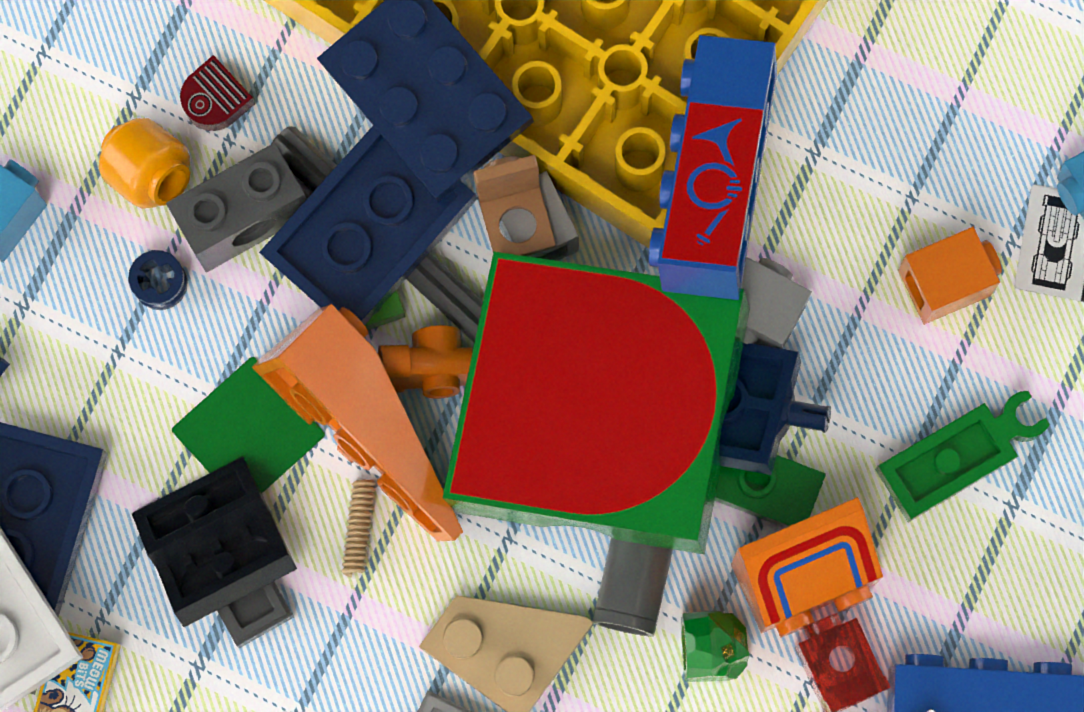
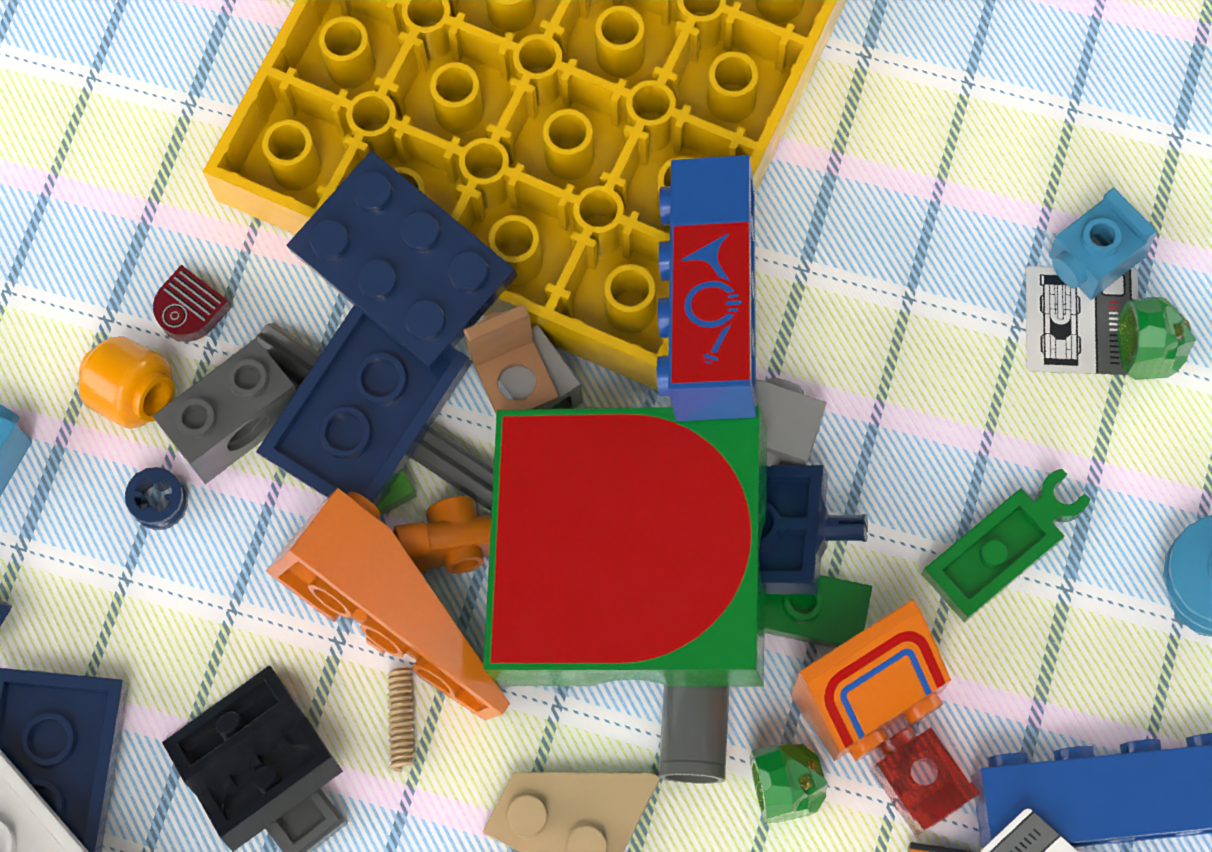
camera: 10 degrees left, 5 degrees down
(250, 422) = (271, 628): green sticker -> none
(950, 274) = (962, 366): orange brick -> none

